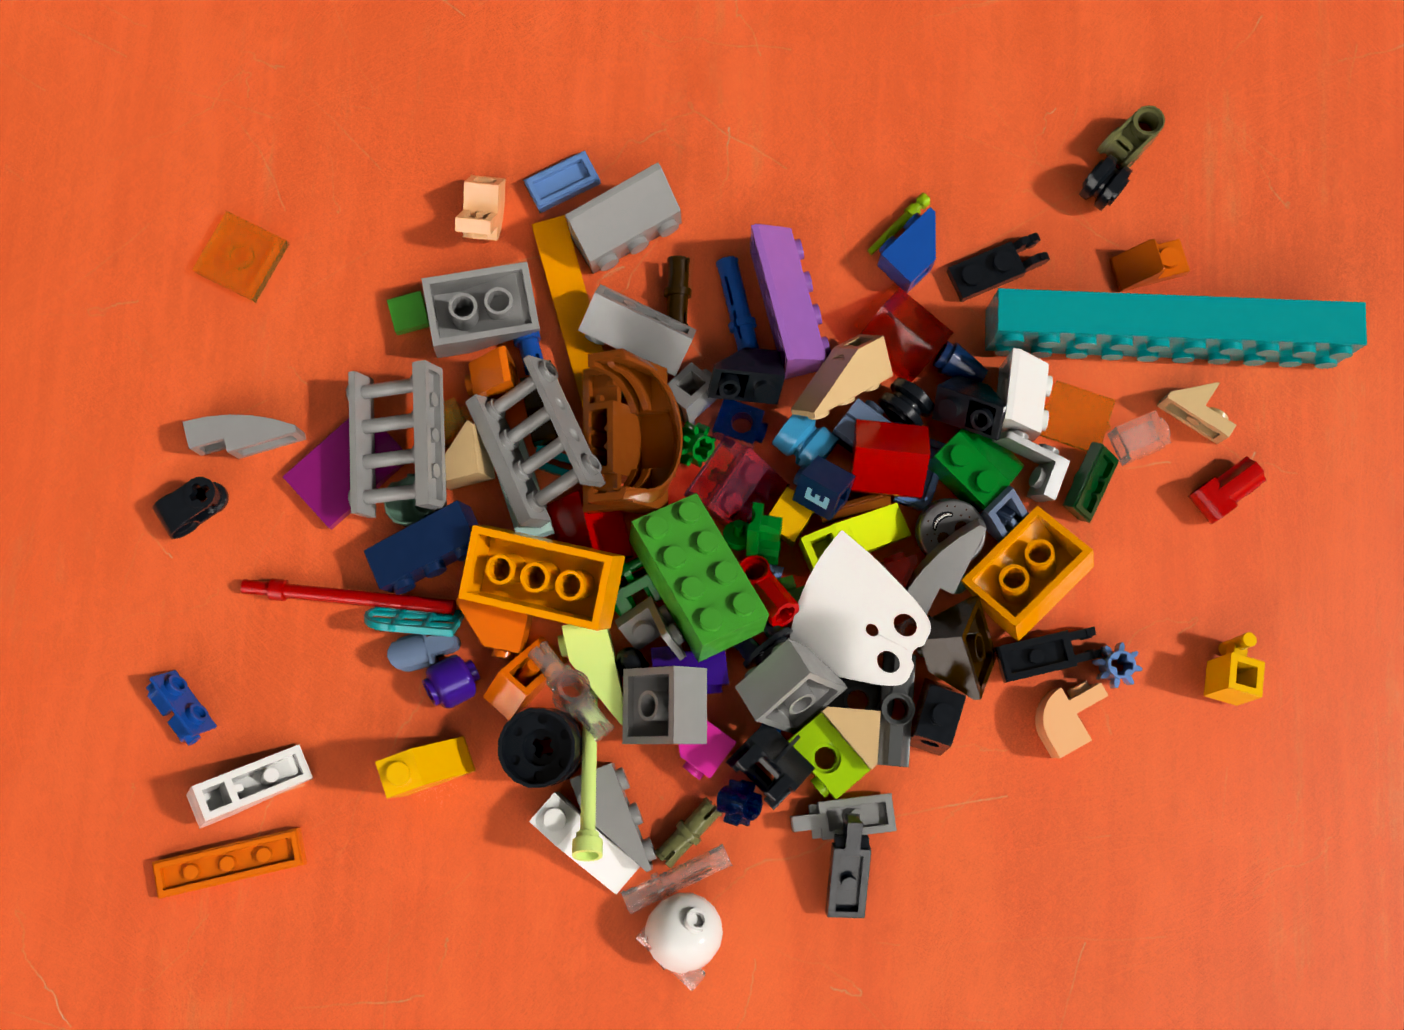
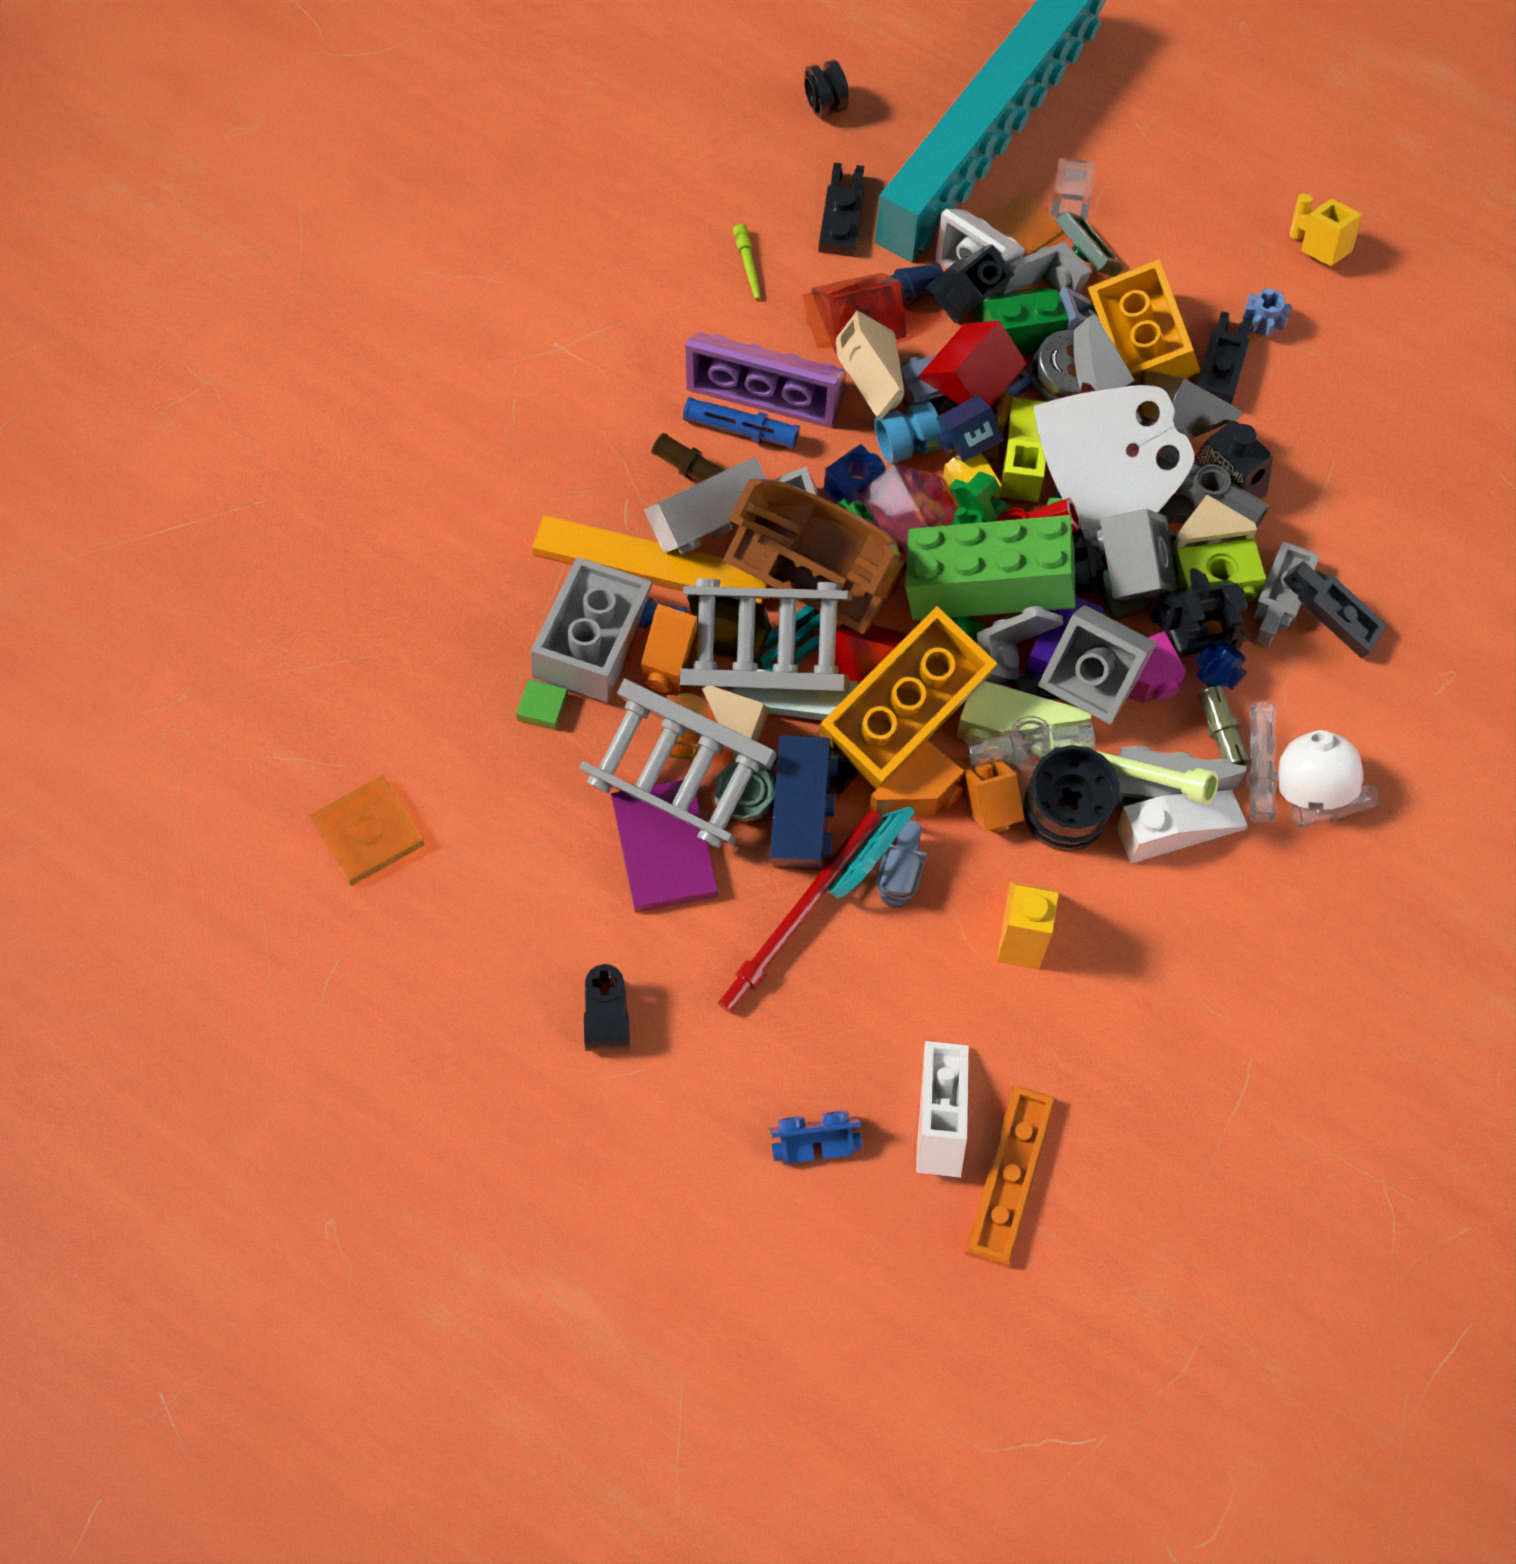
camera: 65 degrees left, 15 degrees down
(239, 434) = (562, 921): light grey slope -> none
(451, 681) = (951, 856): dark purple head -> none
(482, 208) = (486, 577): light nougat brick -> none
(562, 181) = (505, 503): medium blue tile -> none
(624, 219) = (593, 460): light grey slope -> none
(748, 376) = (823, 435): black slope -> none
(906, 403) = (925, 333): black wheel -> none
(913, 253) = (787, 260): blue slope -> none
(1058, 718) = (1291, 379): light nougat brick -> none
(1129, 140) = (797, 47): olive piece -> none
(1149, 264) = (919, 103): orange slope -> none
(1190, 408) = (1075, 139): tan slope -> none
(1222, 493) = (1160, 160): red piece -> none

